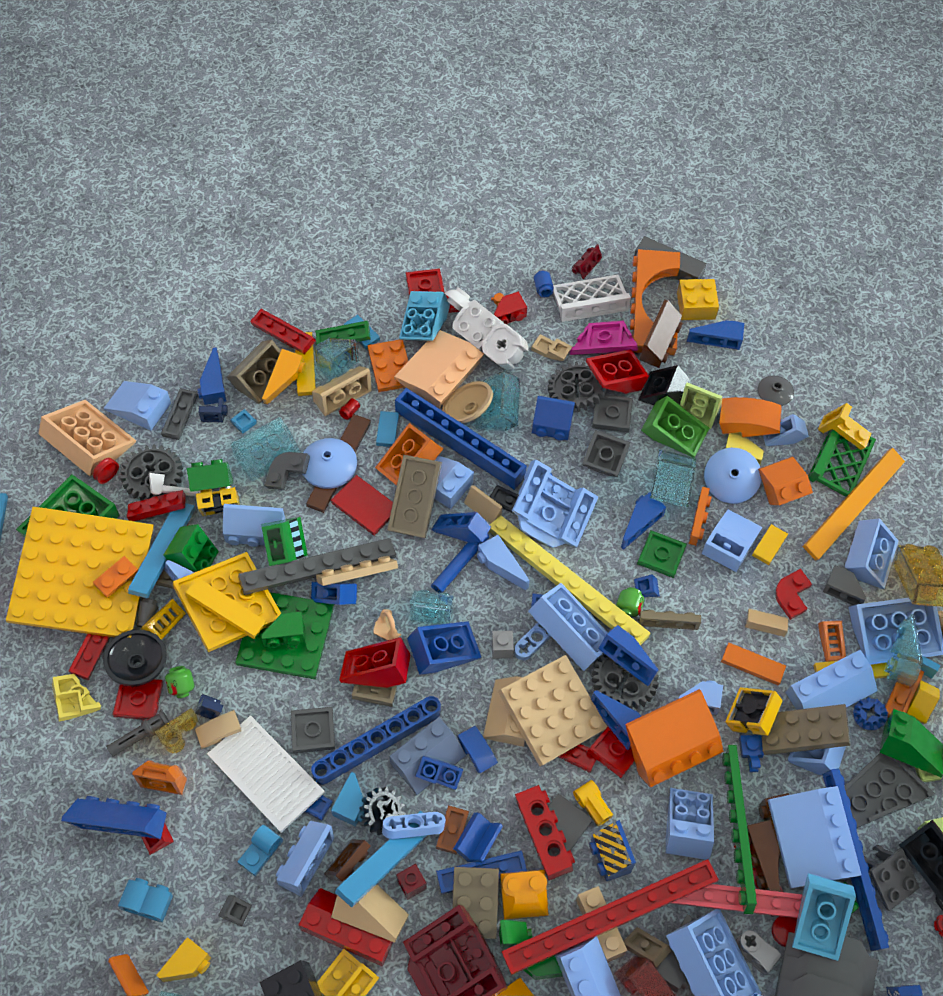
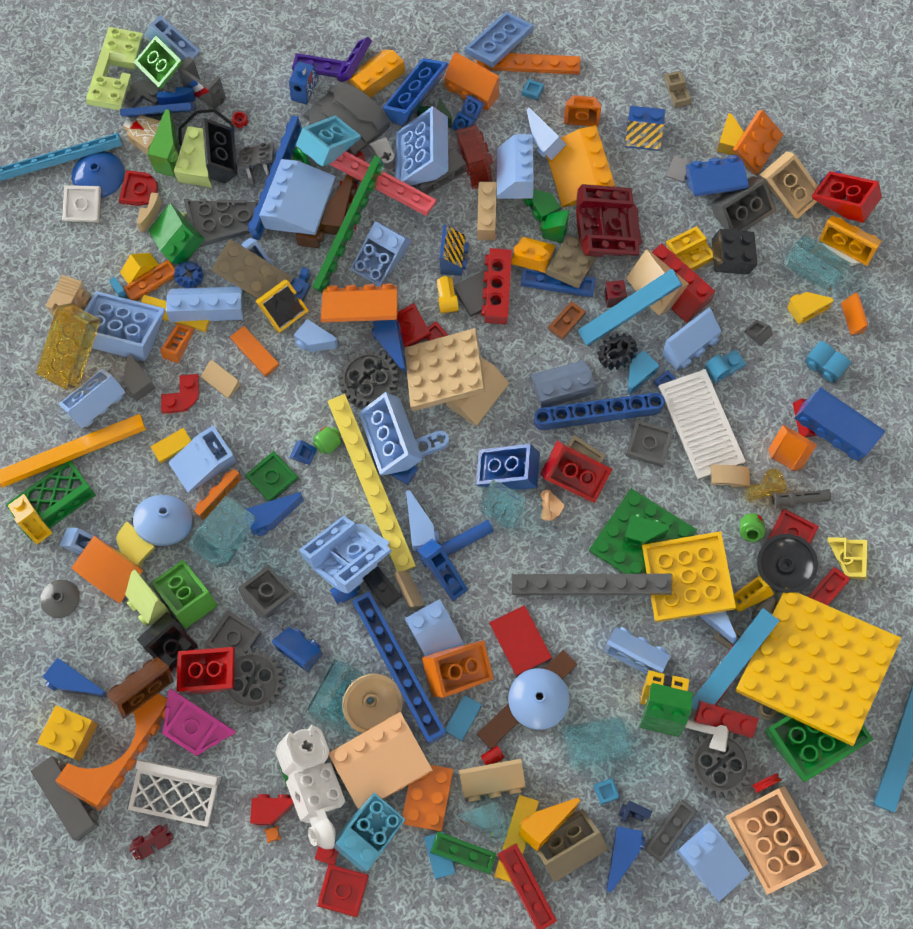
camera: 150 degrees left, 10 degrees up
(115, 577) = (787, 642): orange plate -> none
(191, 548) = (706, 649): green slope -> none
(208, 707) = (733, 495): dark blue bracket -> none
(225, 608) = (694, 564): yellow tile -> none
(282, 465) = (583, 712): dark grey plate -> none
(284, 541) = (617, 614): green slope -> none
(335, 593) = (585, 554): blue slope -> none
(343, 865) = (660, 323): reddish brown plate -> none
(349, 572) = (557, 563): tan plate -> none
(398, 821) = (612, 323): light blue beam -> none
(414, 496) = (472, 616): dark tan plate -> none
(439, 772) = (558, 364): blue slope -> none
(477, 748) = (519, 372): blue slope -> none
(477, 838) = (549, 302): blue panel -> none
(502, 644) = (457, 447): light grey brick -> none
(543, 283) = (215, 829): blue brick -> none
(551, 349) = (251, 742): tan slope -> none
(609, 916) = (480, 199): red plate -> none
(629, 654) = (358, 388): blue slope -> none
(646, 946) = (462, 183): dark tan plate -> none
(669, 620) = (301, 411): dark tan plate -> none
(785, 481) = (121, 488): orange slope -> none
(907, 657) = (135, 289): clear light blue slope -> none

